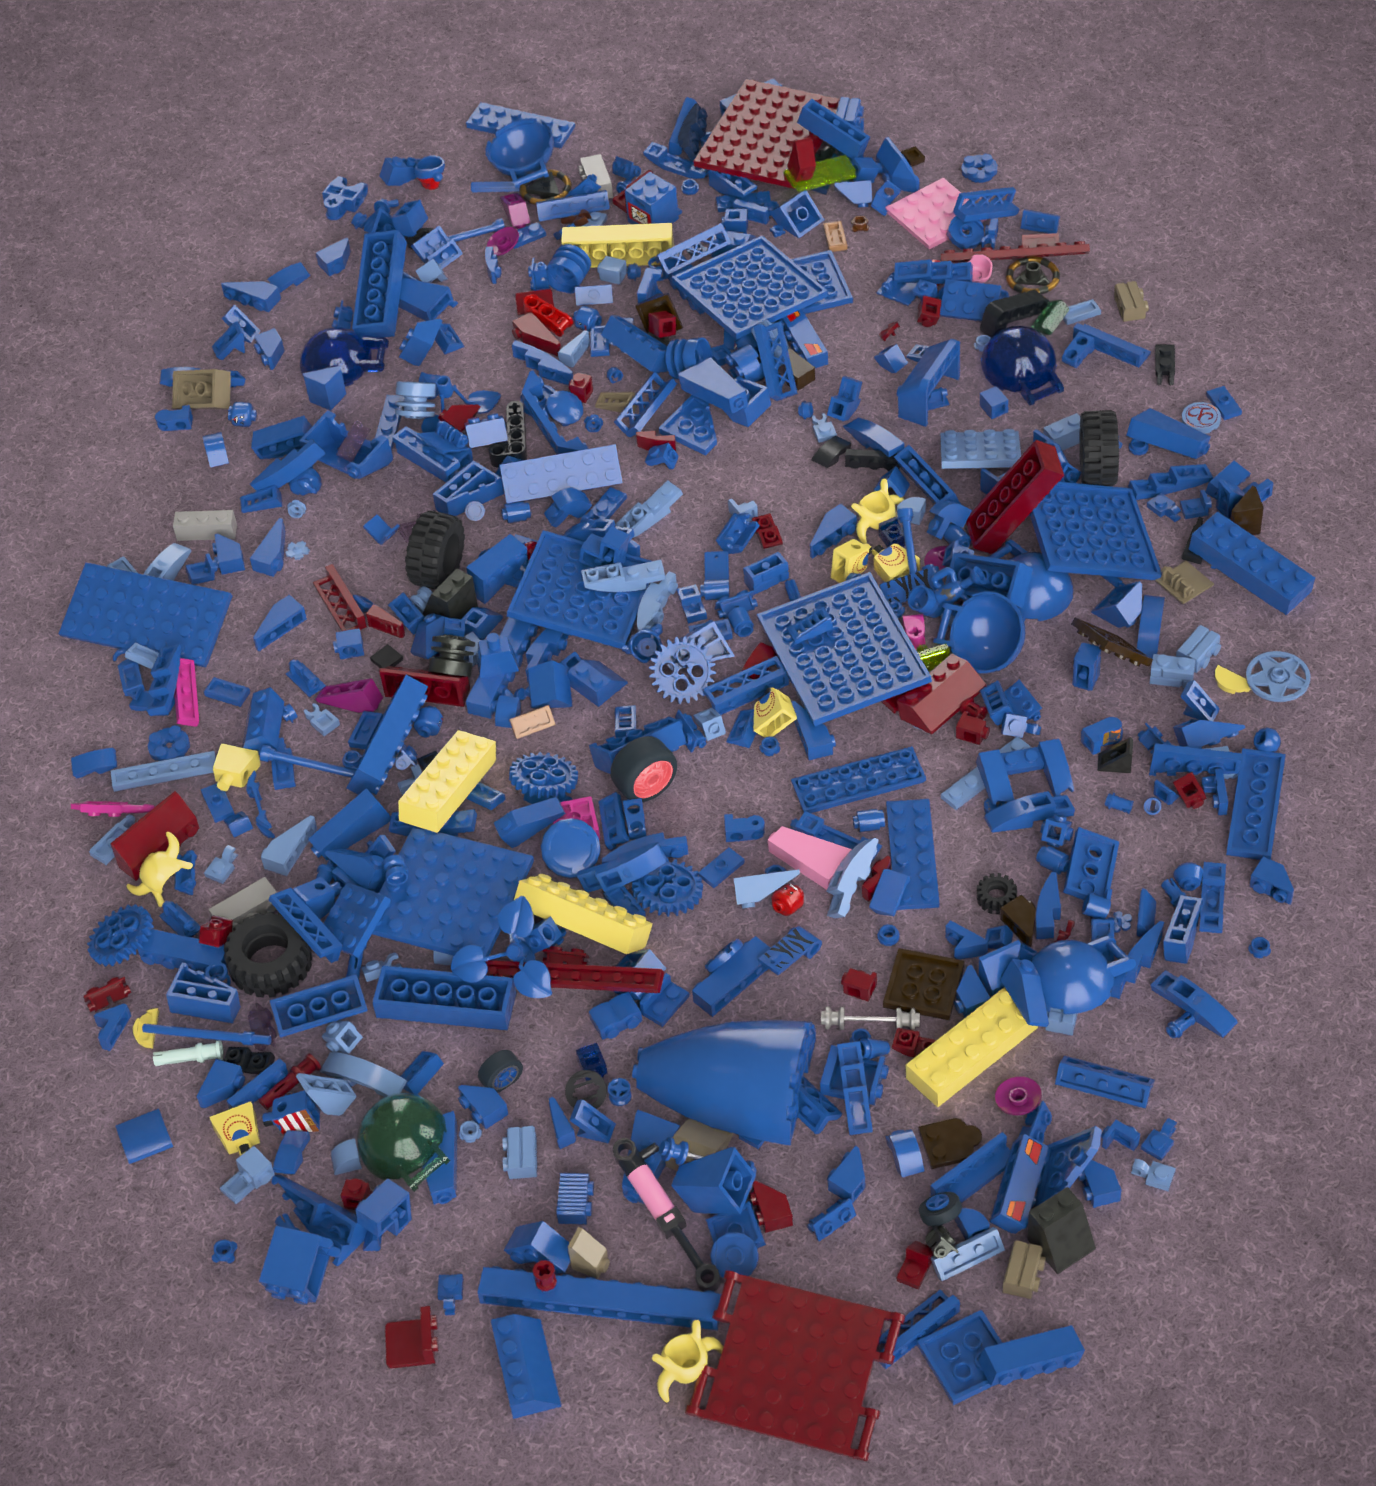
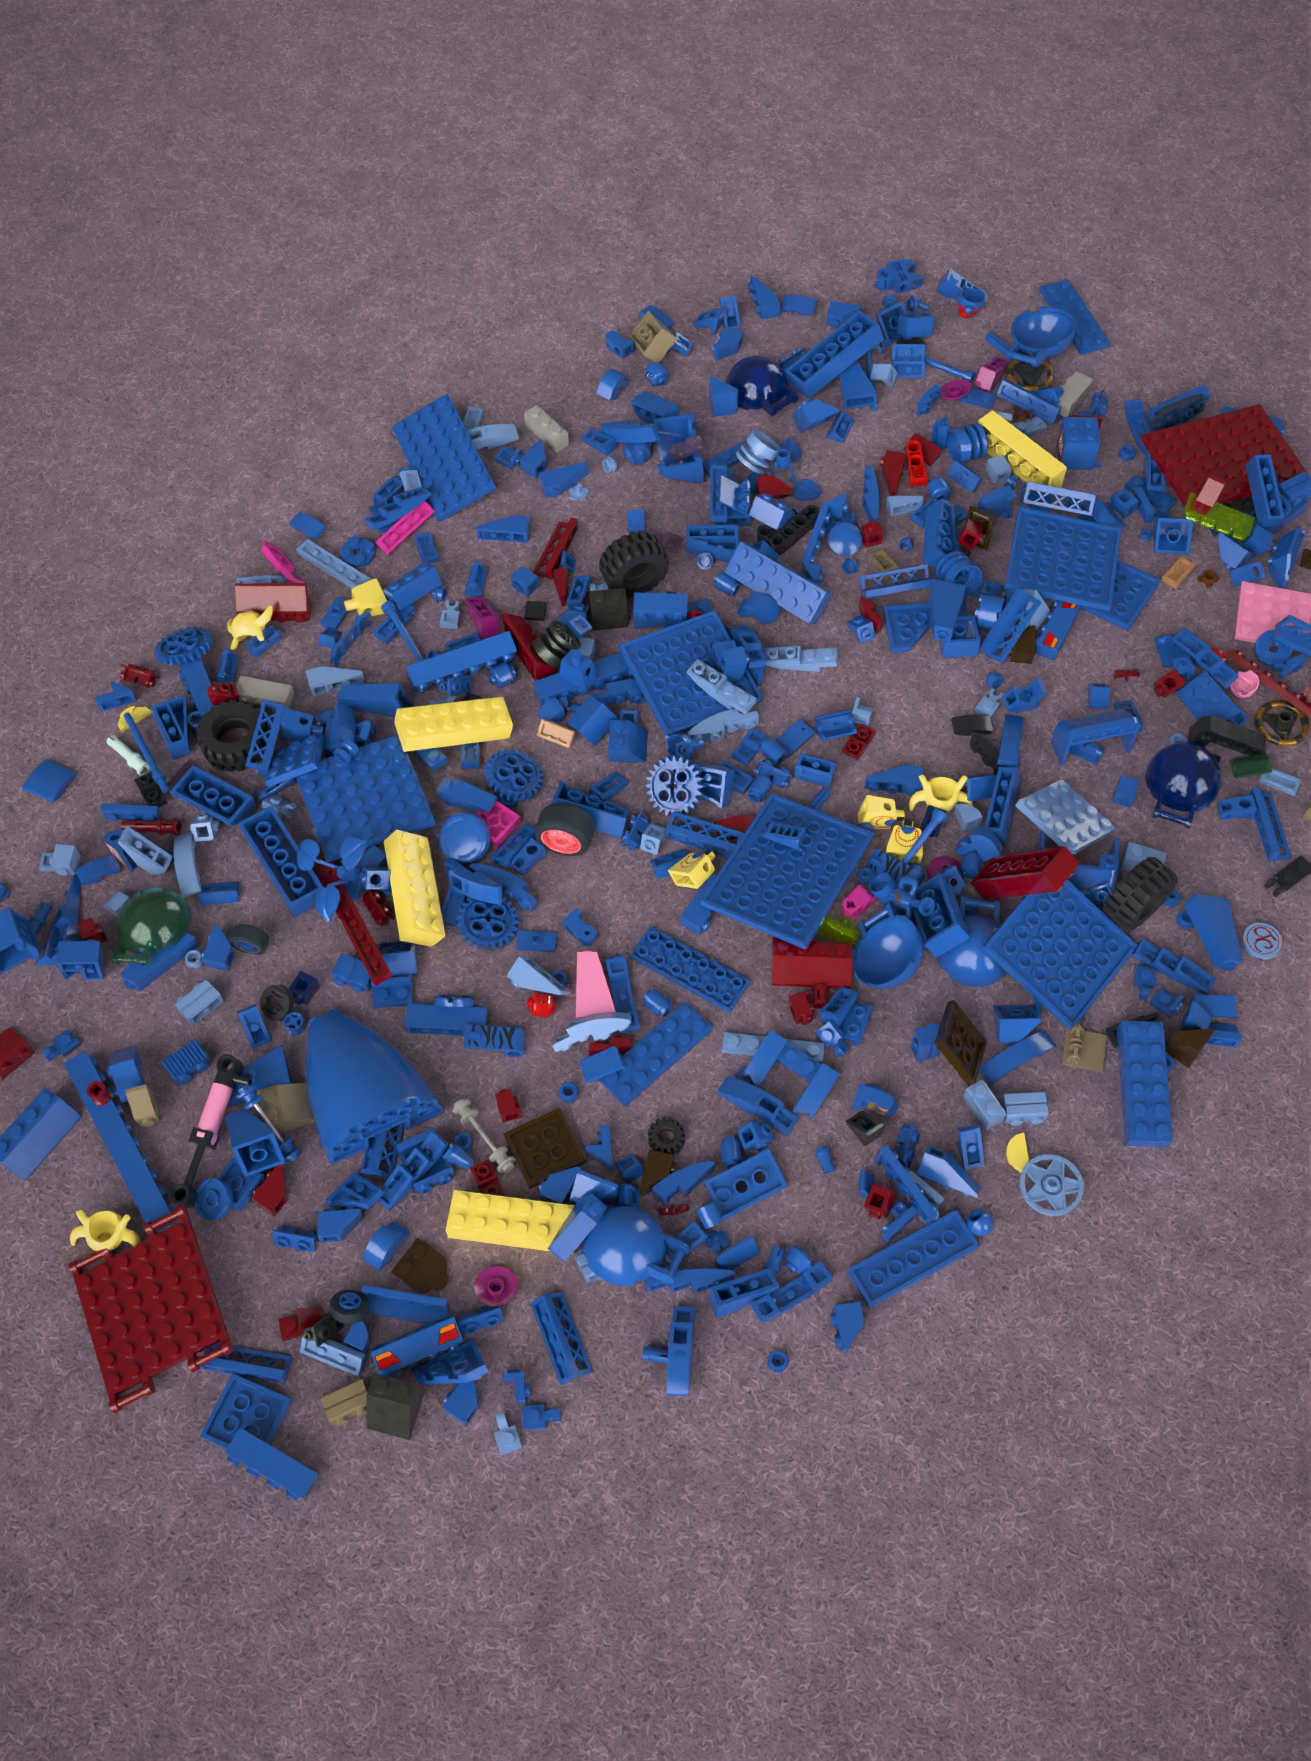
camera: 45 degrees right, 10 degrees up
(220, 1083) = (118, 789): blue slope -> none
(221, 868) = (286, 656): medium blue plate -> none
(237, 1128) = (90, 827): light yellow torso -> none
(481, 621) = (609, 637): blue slope -> none
(563, 1129) = (243, 1001): blue slope -> none
(606, 505) = (781, 631): blue plate -> none
(770, 742) = (667, 886): blue plate -> none
(833, 1143) = (355, 1193): none -> blue wing
(1147, 805) = (841, 1181): blue hinge -> none
(1224, 402) = (1294, 945): blue plate -> none

